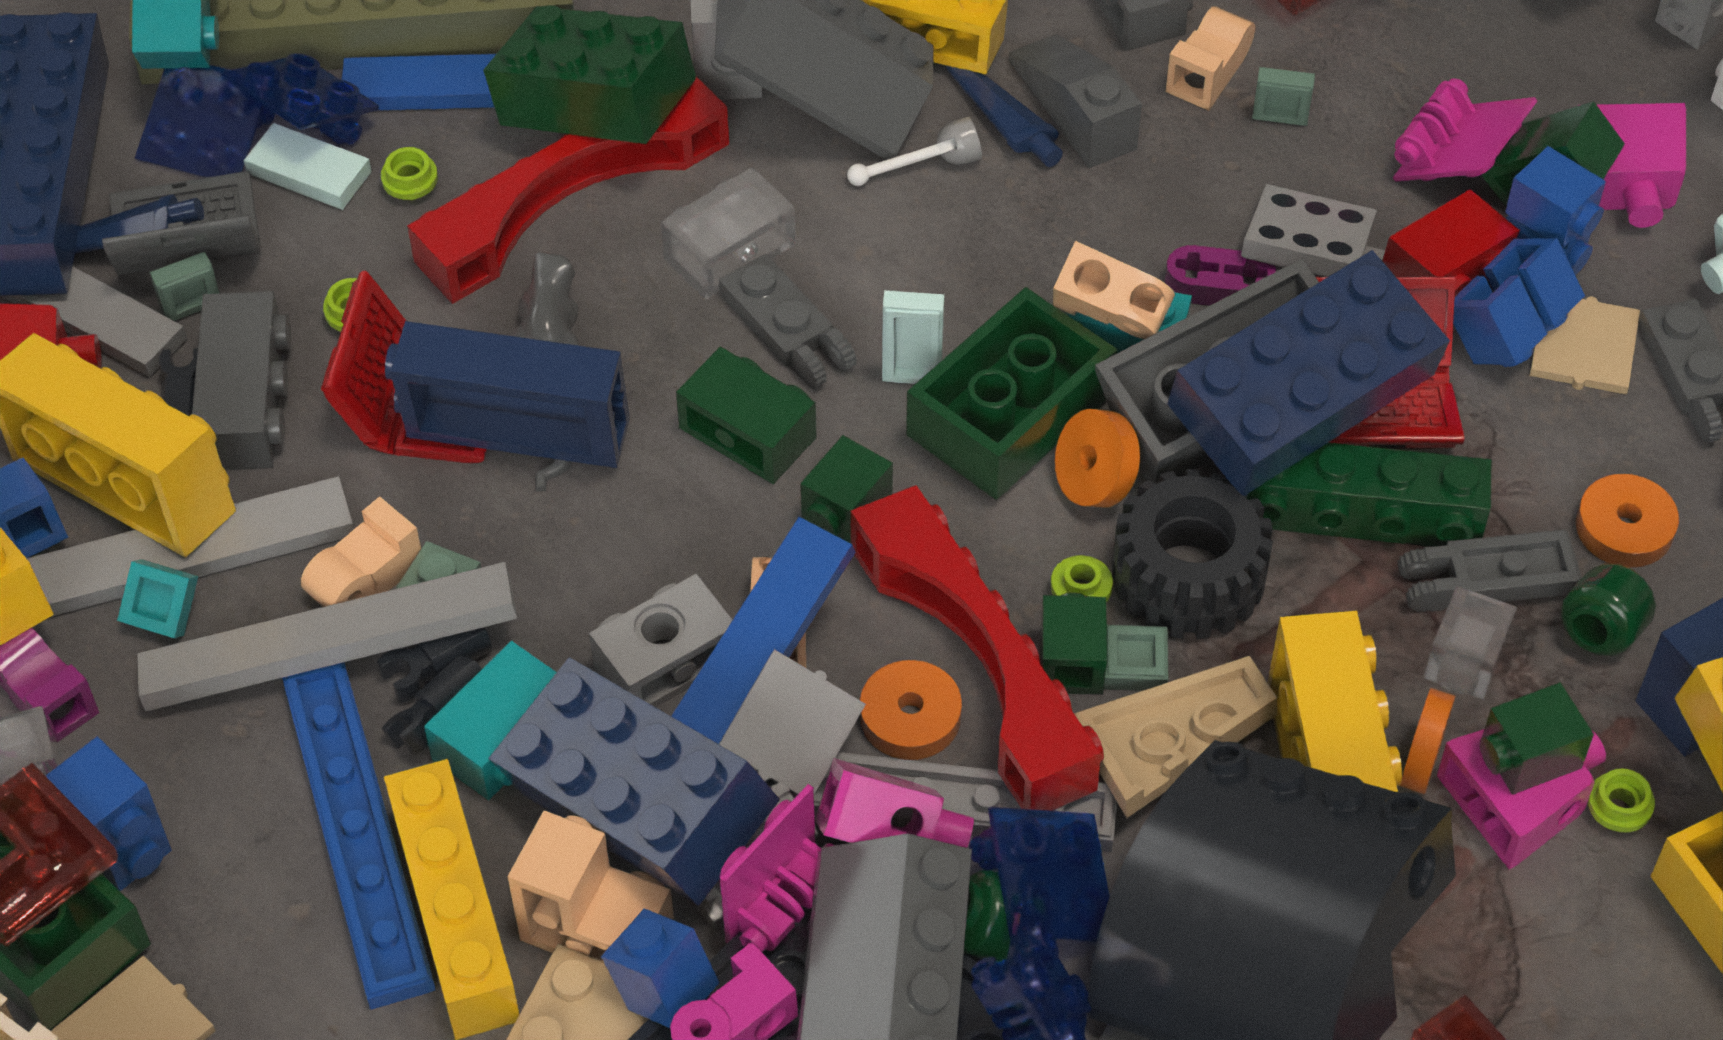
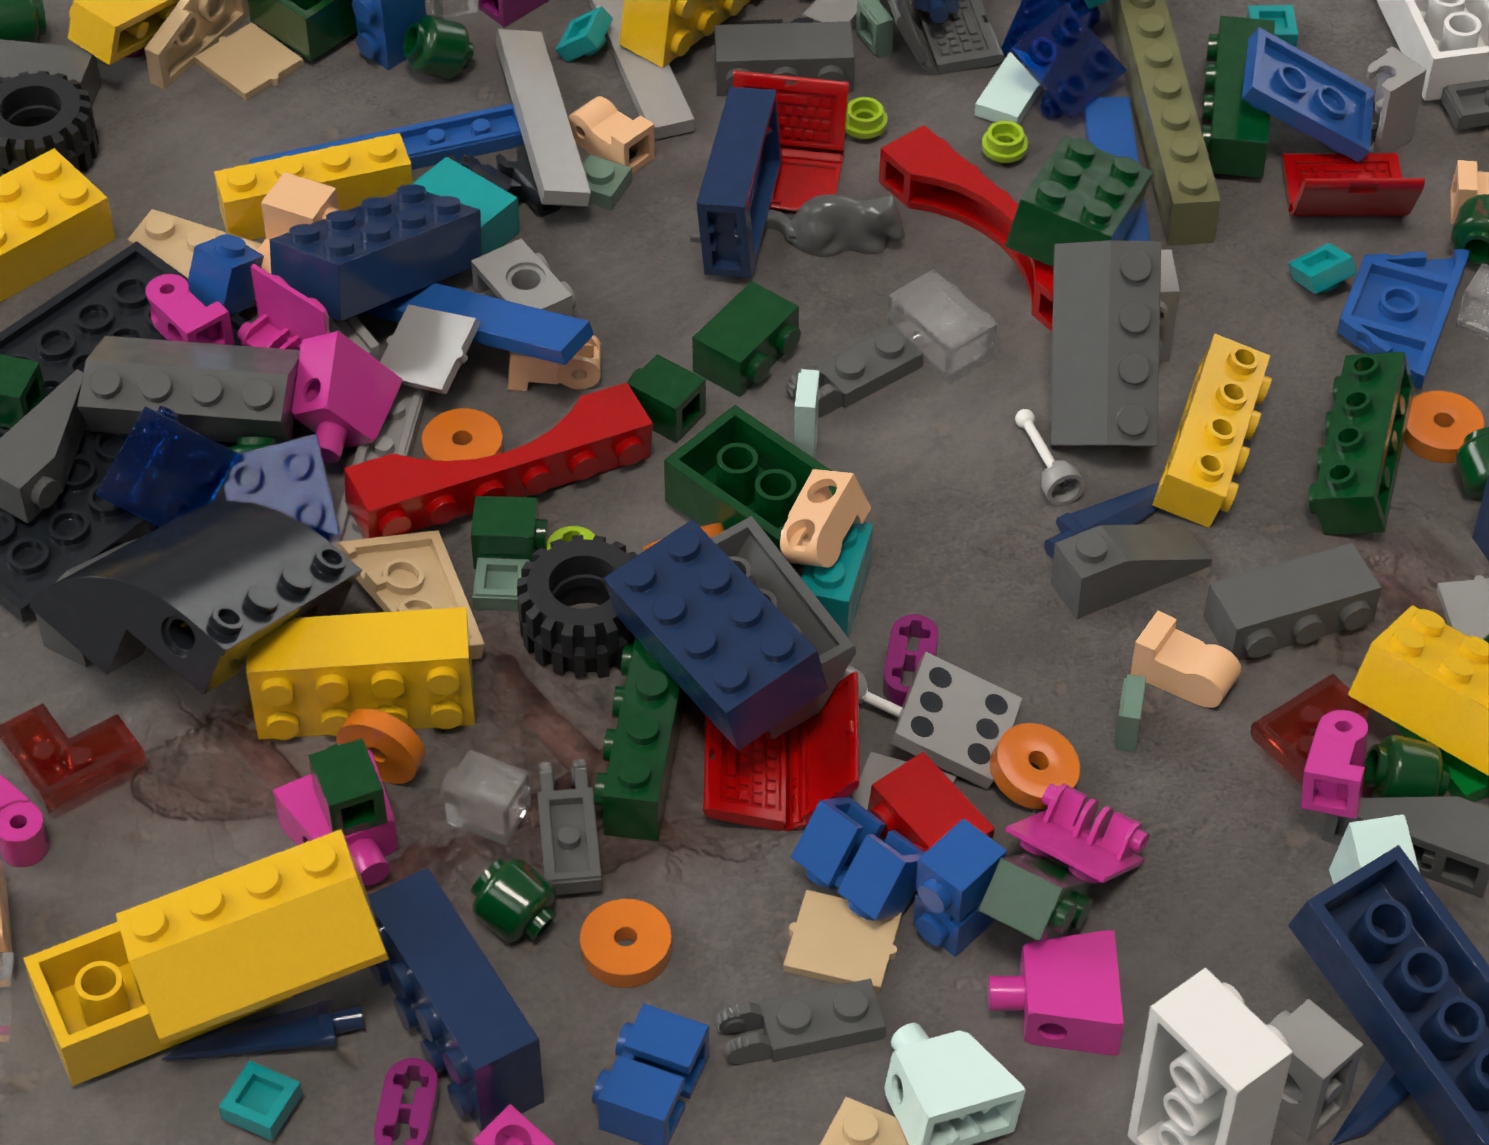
camera: 90 degrees right, 5 degrees down
(173, 763) = (437, 47): none -> dark green head
(1356, 175) = (1039, 746): none -> orange piece

